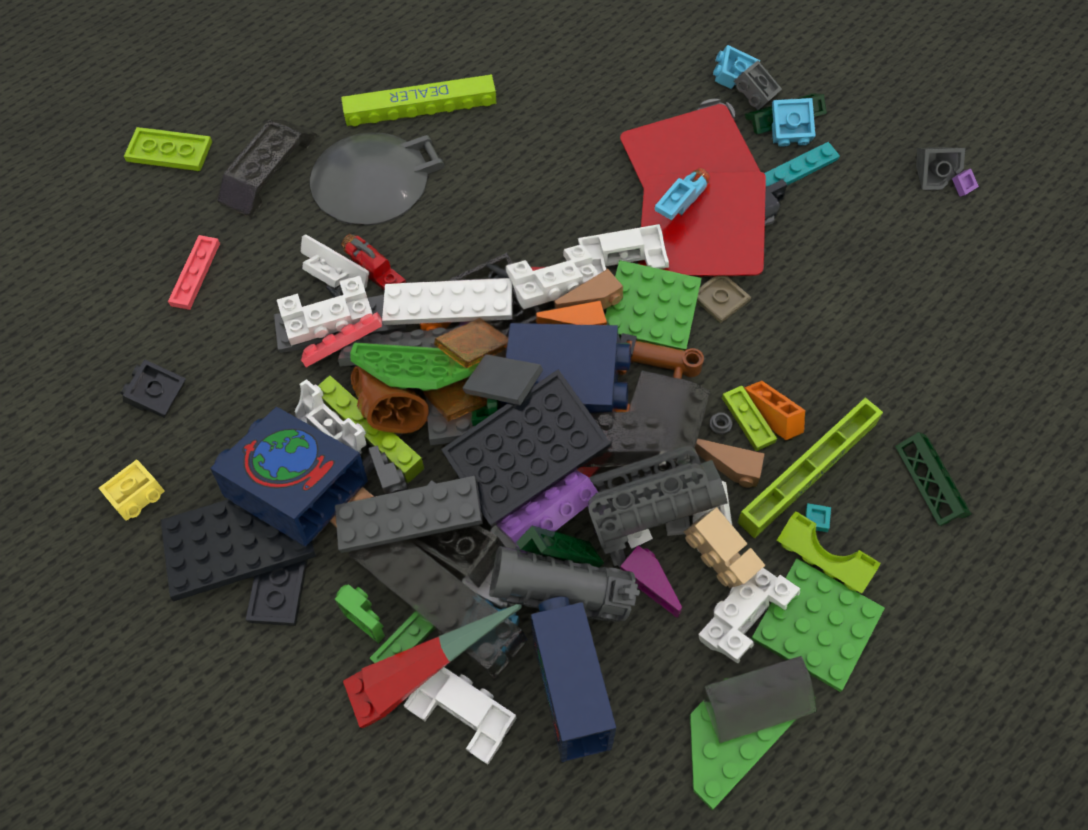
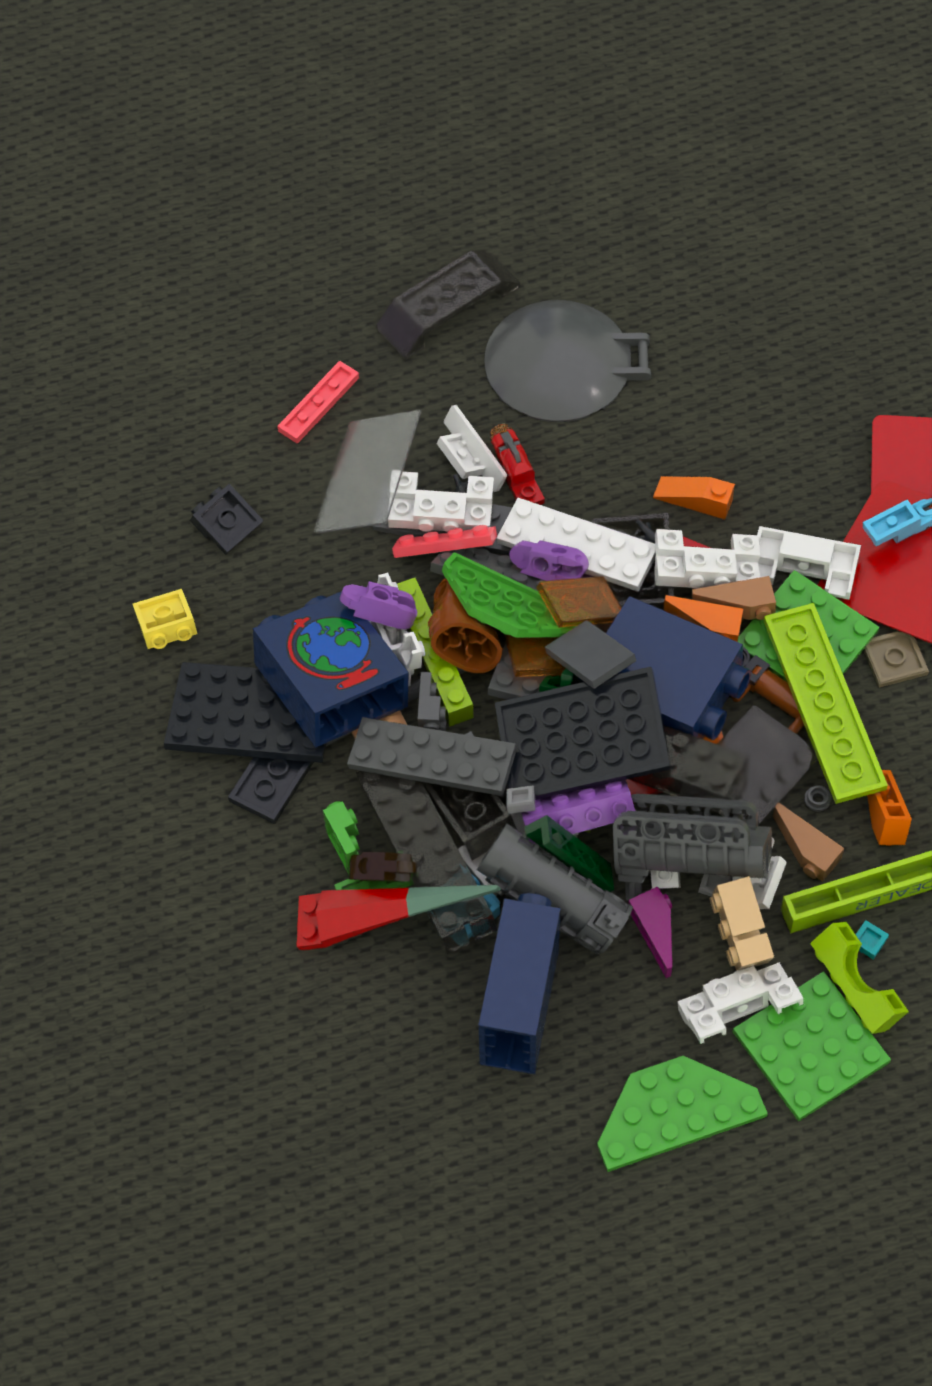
camera: 25 degrees right, 0 degrees up
(168, 149) = (345, 241): lime plate -> none
(256, 309) = (367, 472): none -> clear piece
(311, 406) = (380, 604): none -> medium lavender piece
(407, 627) = (382, 867): none -> dark brown piece
(419, 100) = (657, 285): lime brick -> none
(442, 316) = (562, 560): none -> medium lavender piece
(467, 704) = (409, 967): white bracket -> none
(500, 520) = (521, 799): none -> light grey tile
(522, 232) = (697, 493): none -> orange slope
(695, 349) = (825, 703): none -> lime plate
(749, 418) = (854, 821): lime plate -> none
(760, 699) = (705, 1086): clear smoke slope -> none

